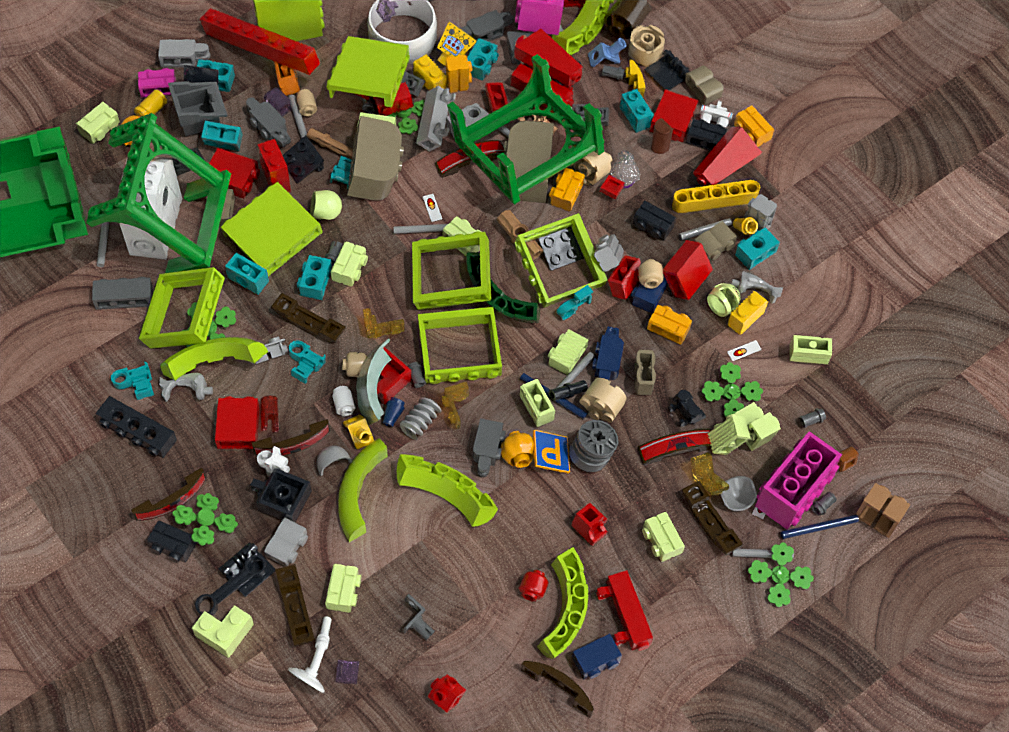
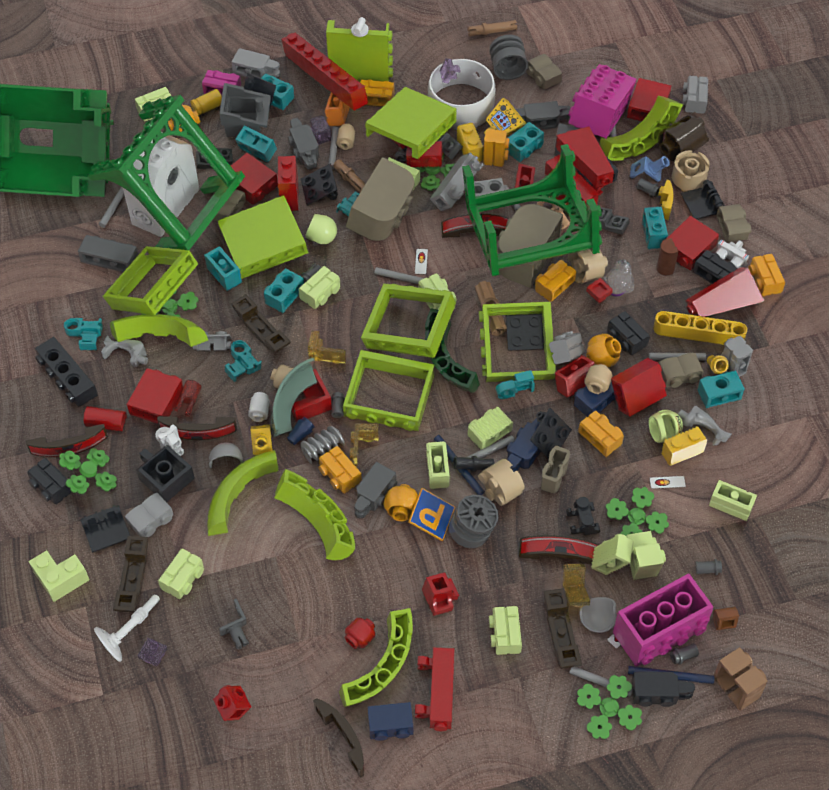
camera: 25 degrees right, 5 degrees down
(194, 460) = (110, 418): none -> red brick
(232, 585) = (83, 537): black piece -> none
(323, 46) = (378, 92): none -> light orange brick
(447, 437) = (339, 469): none -> light orange brick
(627, 340) = (550, 432): none -> black hinge
(641, 244) = (603, 350): none -> light orange plant
(816, 543) = (660, 689): none -> black hinge

